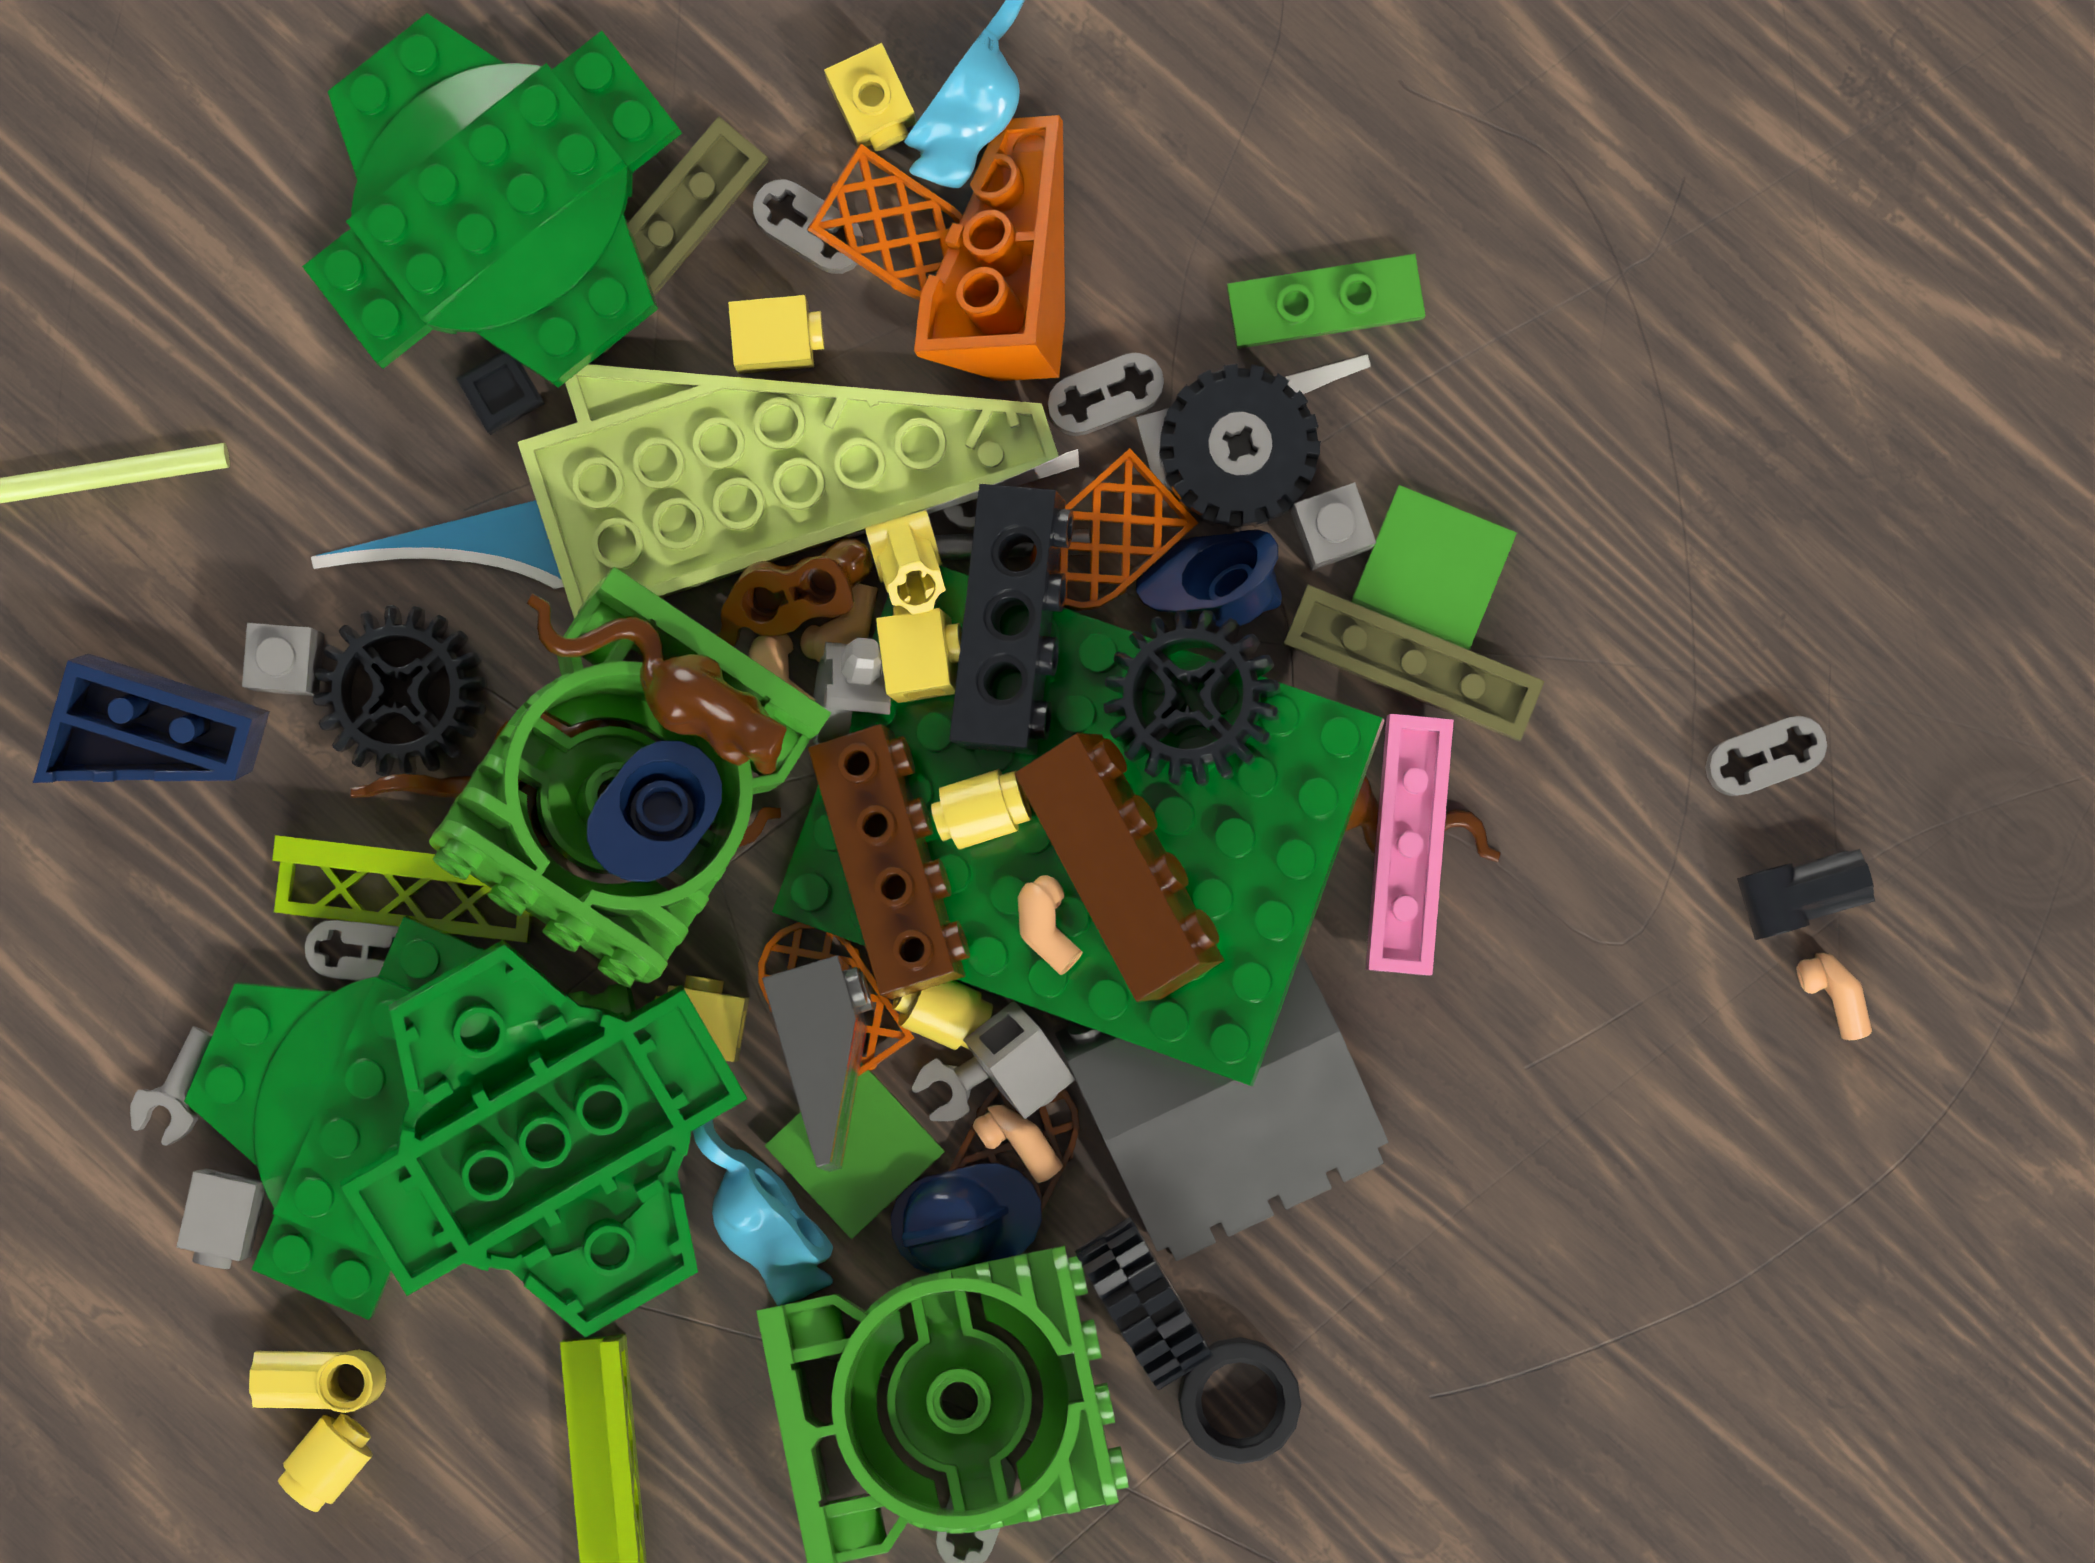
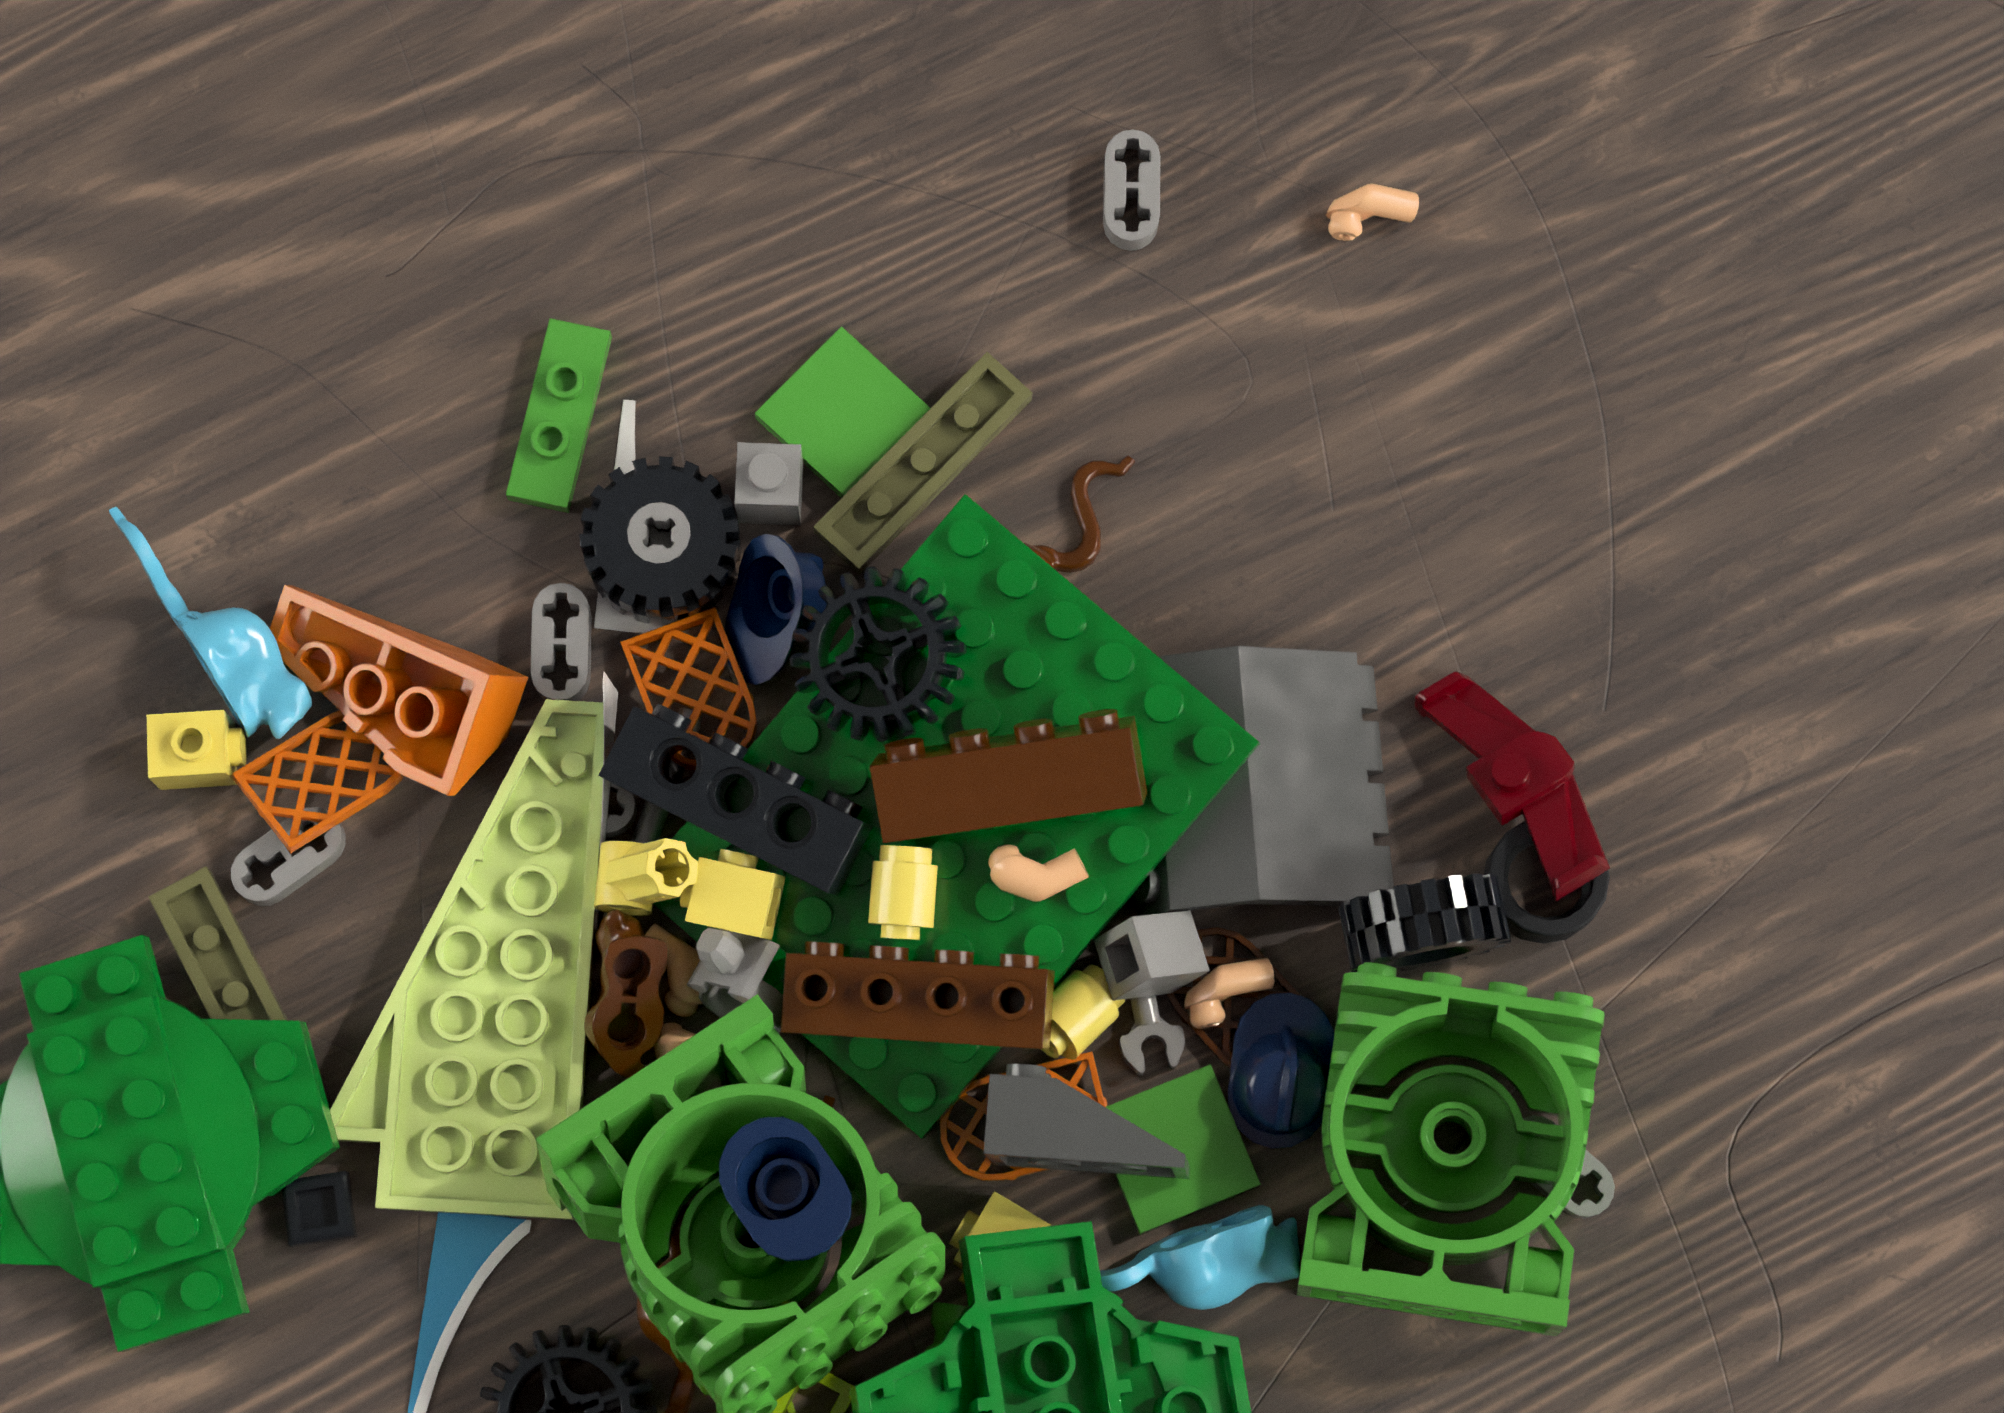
camera: 75 degrees left, 10 degrees down
(682, 692) = (682, 1116): reddish brown animal -> none
(774, 334) = (376, 922): light yellow brick -> none
(1327, 1342) = (1520, 775): none -> dark red plate
(1409, 844) = (1091, 527): bright pink plate -> none
(1791, 896) = (1267, 215): black piece -> none

